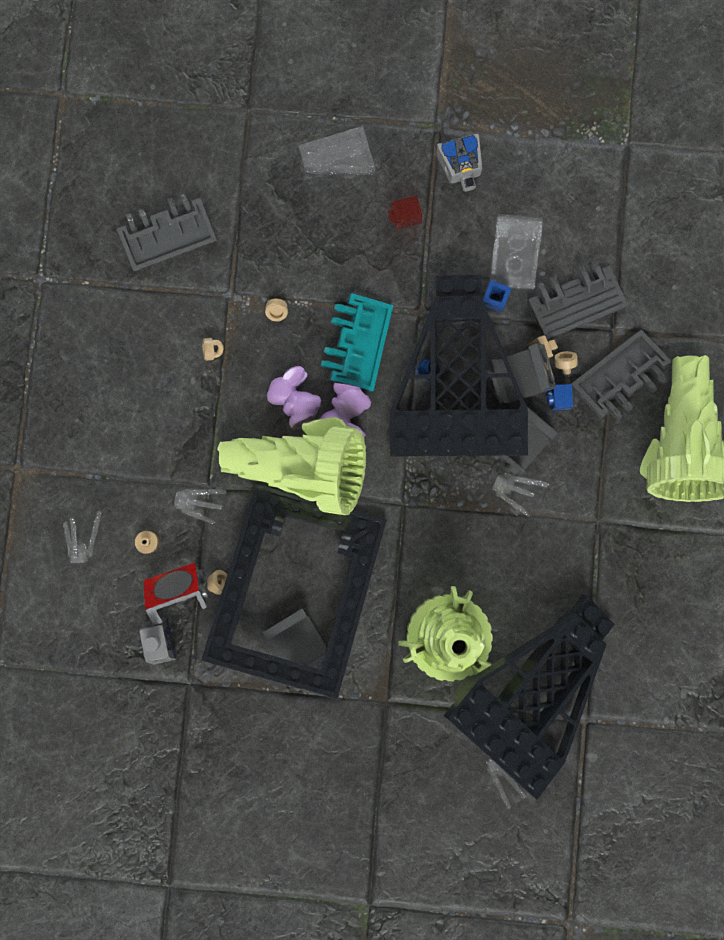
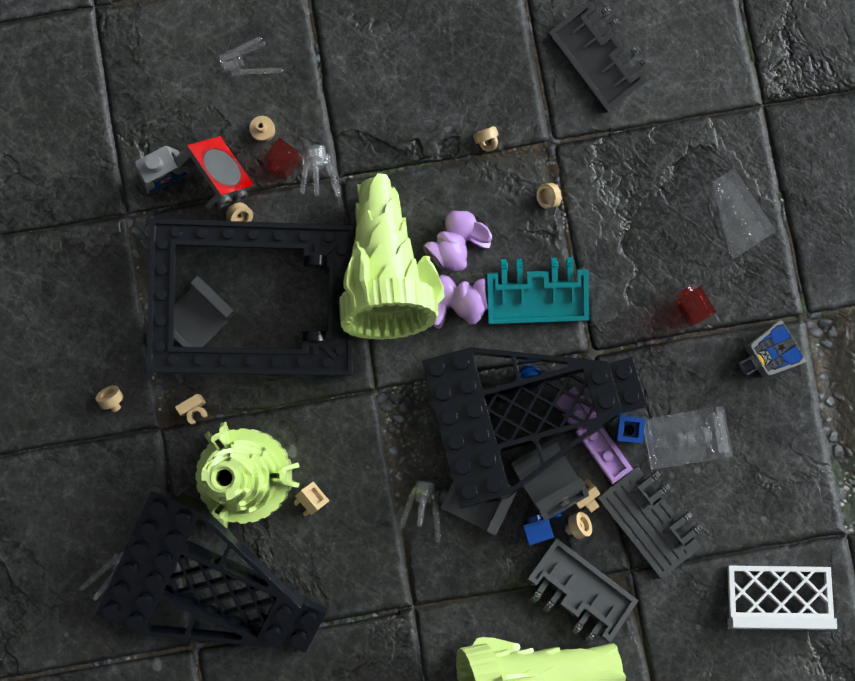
camera: 75 degrees right, 0 degrees up
(178, 530) = (282, 158): none -> clear red brick
(349, 739) = (110, 398): none -> tan tile
(376, 669) = (190, 406): none -> tan tile
(484, 583) = (311, 498): none -> tan tile
(504, 324) = (599, 444): none -> lavender tile
(687, 218) = (785, 620): none -> white fence

